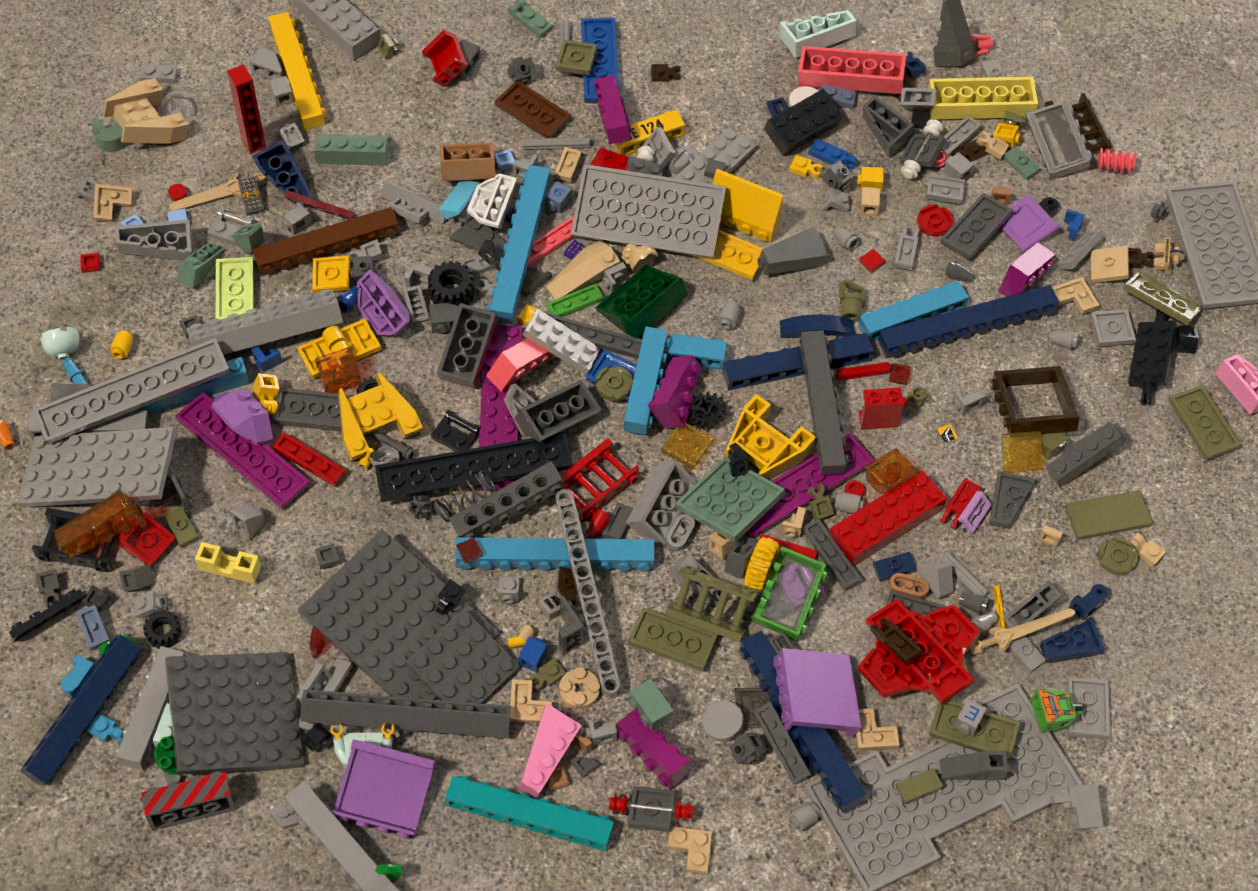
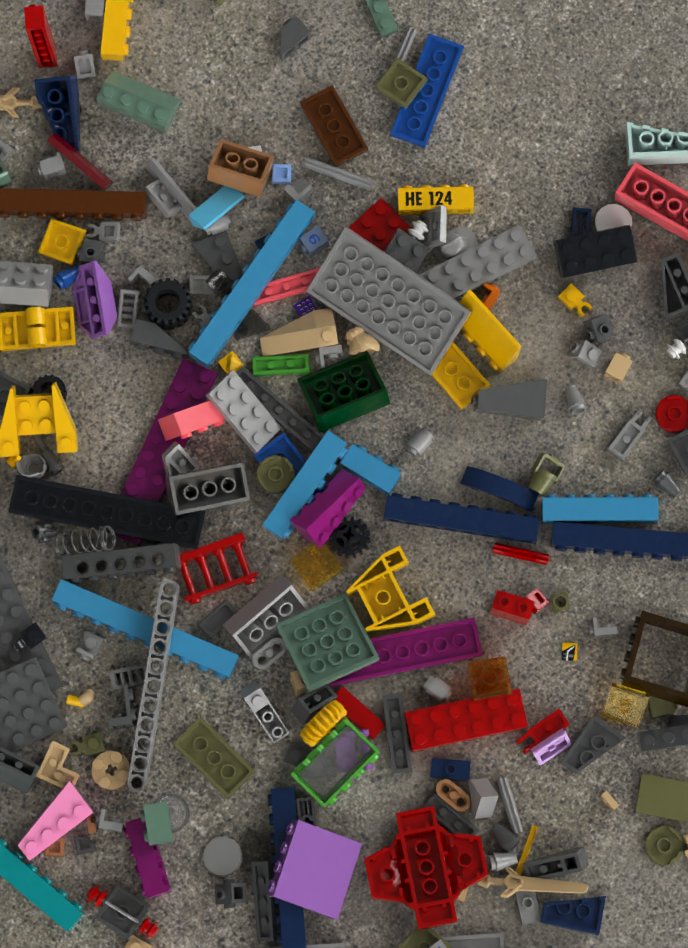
camera: 25 degrees right, 20 degrees up
(251, 195) = (19, 121): dark grey tile -> none
(338, 371) = (23, 359): clear orange slope -> none
(445, 57) = (272, 33): red panel -> none
(453, 437) = (104, 467): black plate -> none
(467, 345) = (152, 381): dark grey brick -> none
(469, 550) = (66, 598): clear red tile -> none
(492, 200) = (244, 225): white wedge -> none
(521, 69) = (341, 75): dark grey brick -> none
(532, 654) = (83, 720): blue brick -> none
(566, 585) = (137, 671): dark brown plate -> none
(567, 164) = (340, 205): tan plate -> none
(597, 523) = (197, 614): red cone -> none
(612, 110) = (406, 167): magenta wedge -> none
(662, 73) = (483, 130): dark brown plate -> none
(697, 617) = (249, 753): olive fence -> none
(712, 166) = (478, 274): dark grey tile -> none
(738, 460) = (352, 611): black bracket -> none
(794, 528) = (381, 688): tan bracket -> none
(820, 505) = (410, 680): olive plate -> none
(822, 402) = (459, 579): dark grey brick -> none
(831, 154) = (608, 296): blue plate -> none
(840, 96) = (647, 229): sand blue plate -> none
(854, 487) = (451, 675): red tile -> none
(870, 177) = (631, 343): yellow brick -> none
(871, 260) = (589, 435): red tile -> none
(873, 737) = (347, 927): tan plate -> none
(896, 641) = (408, 854): dark brown hinge -> none
(899, 374) = (554, 570): clear red tile -> none
(1089, 603) = (619, 879): dark blue leg -> none

